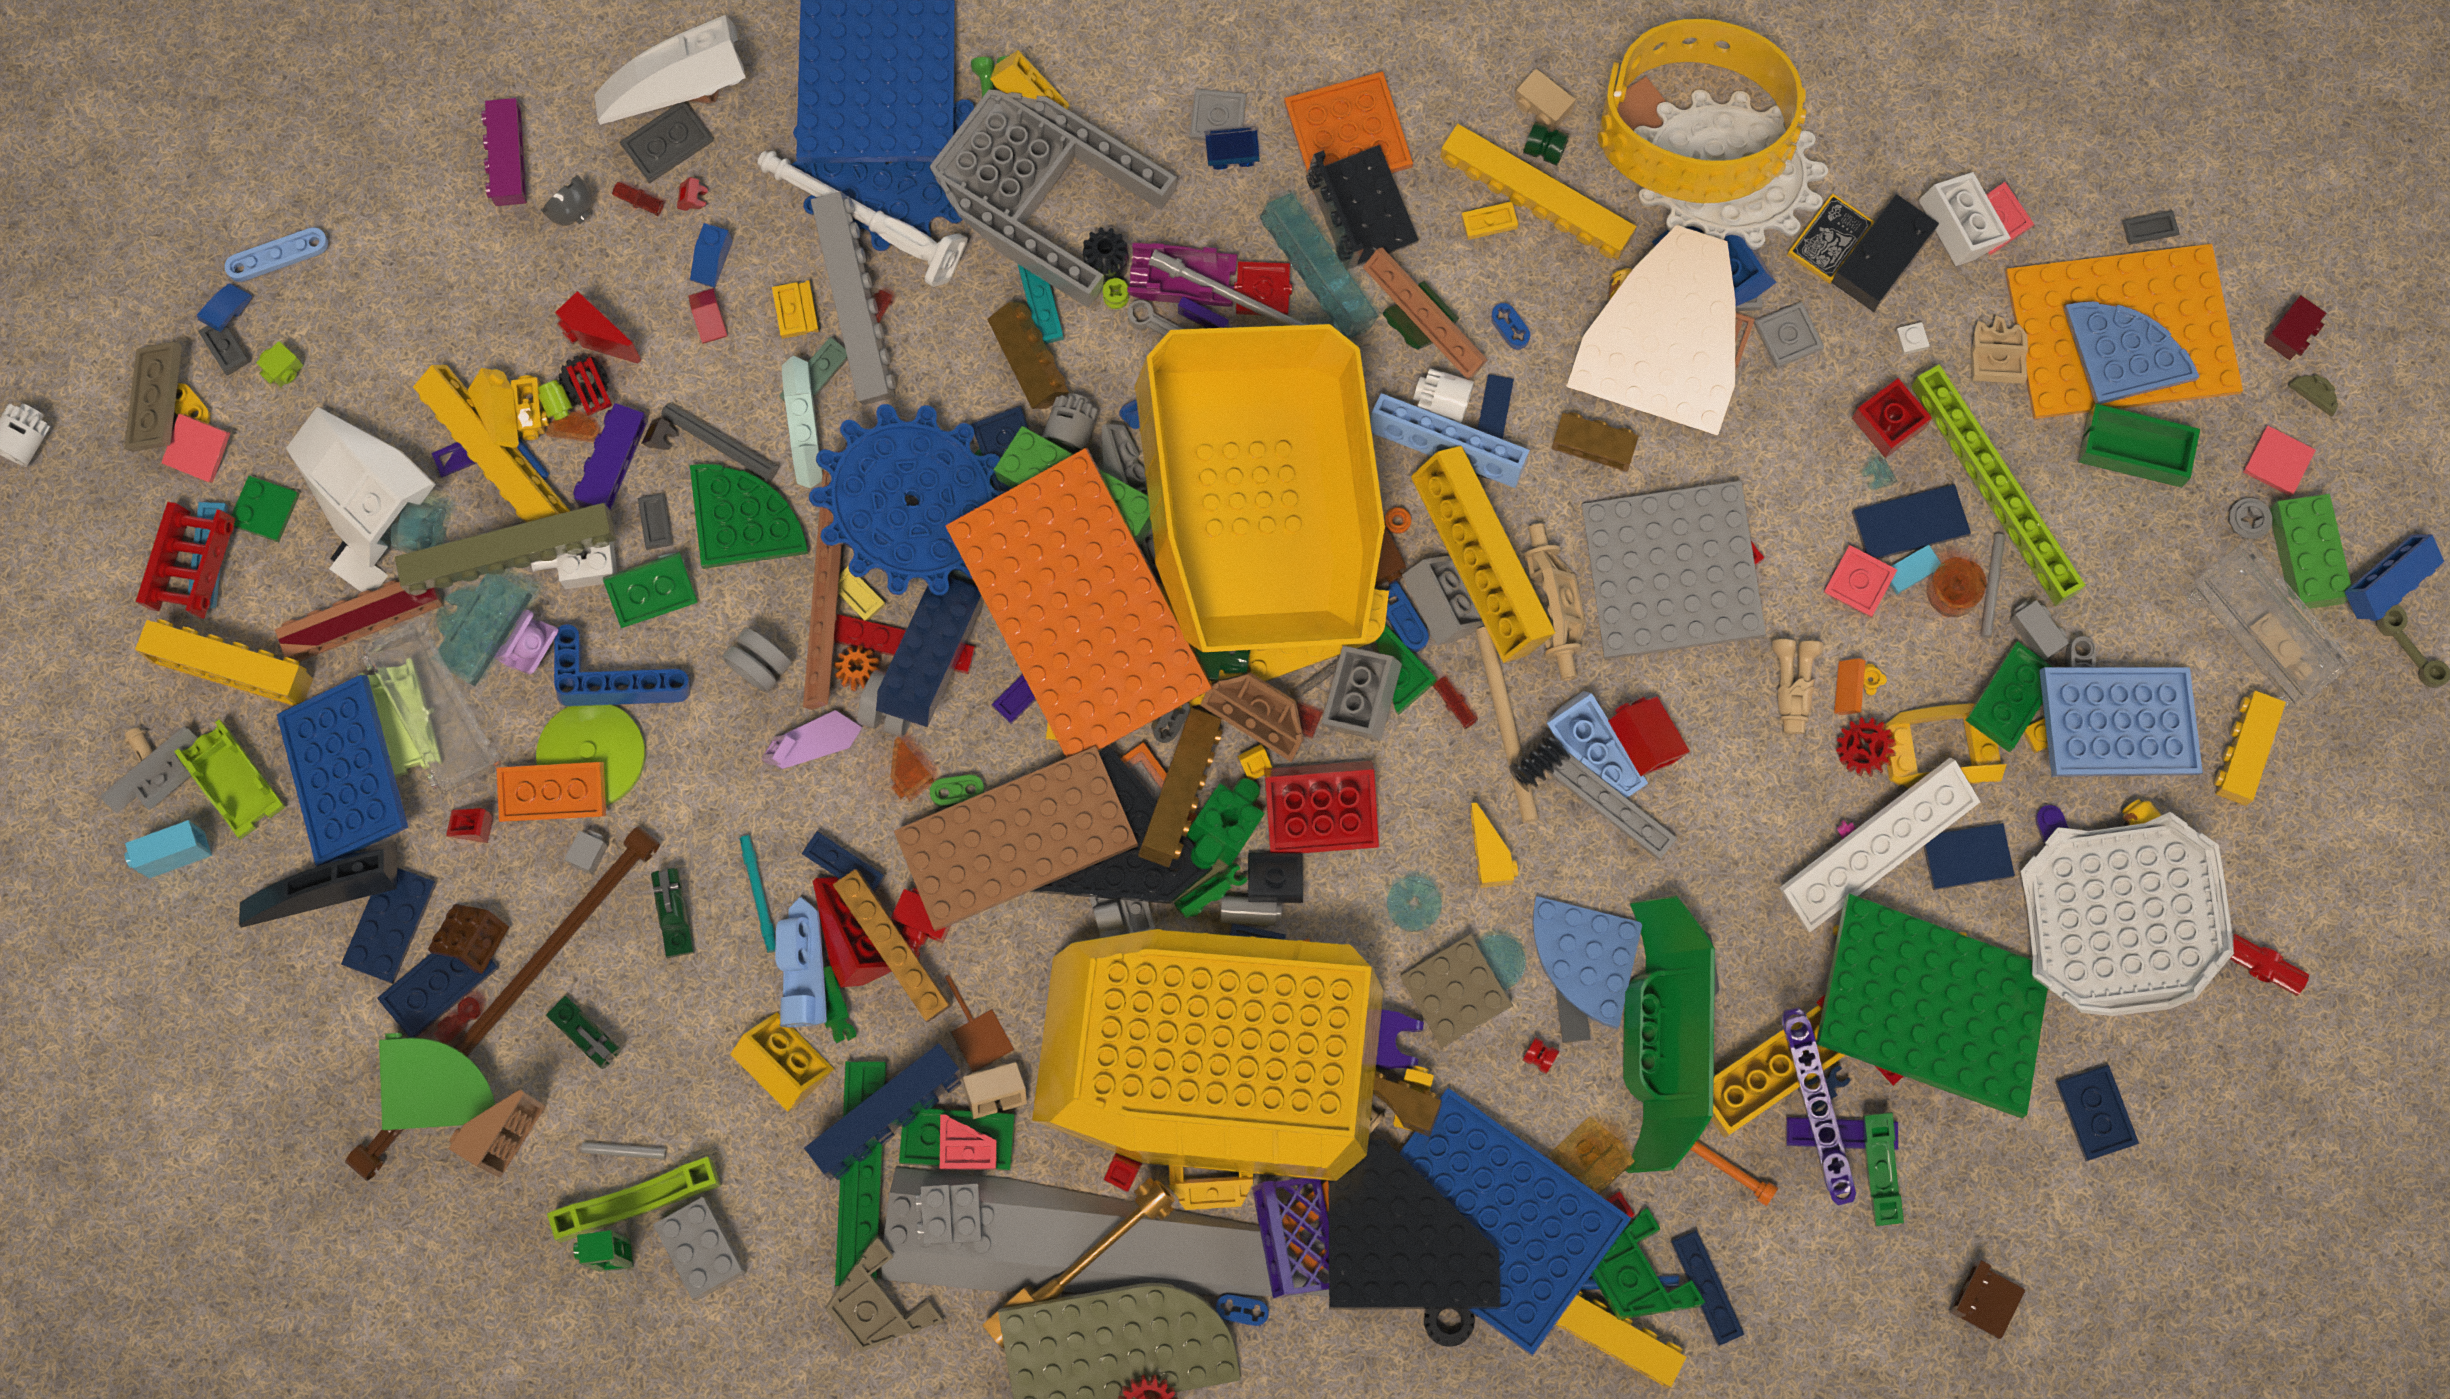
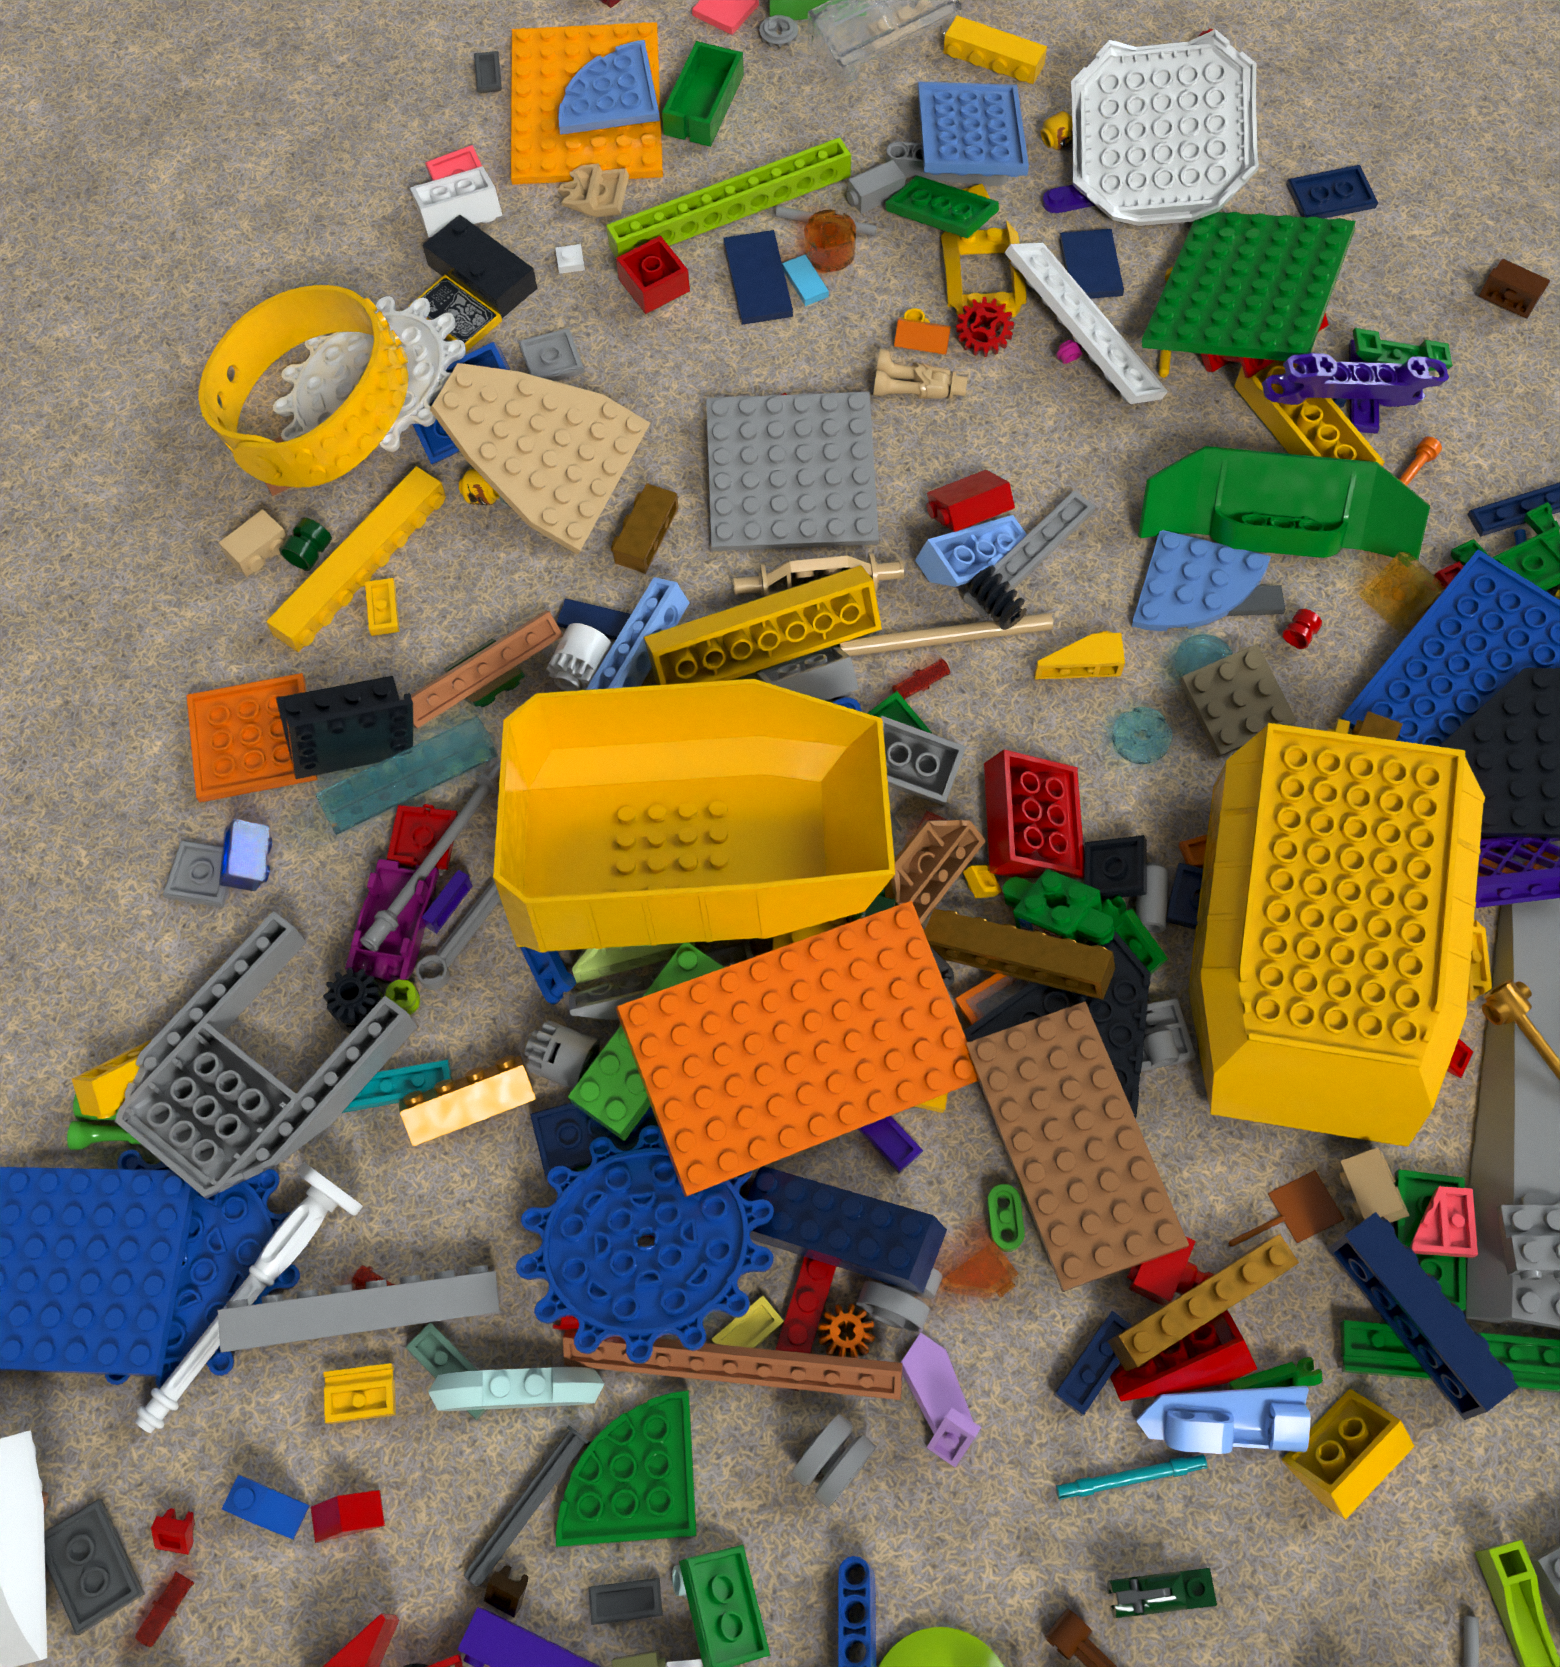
camera: 85 degrees left, 10 degrees down
(1506, 330) = (505, 597): blue beam -> none
(1860, 581) = (815, 319): coral tile -> none
(1883, 474) = (706, 291): clear light blue tile -> none

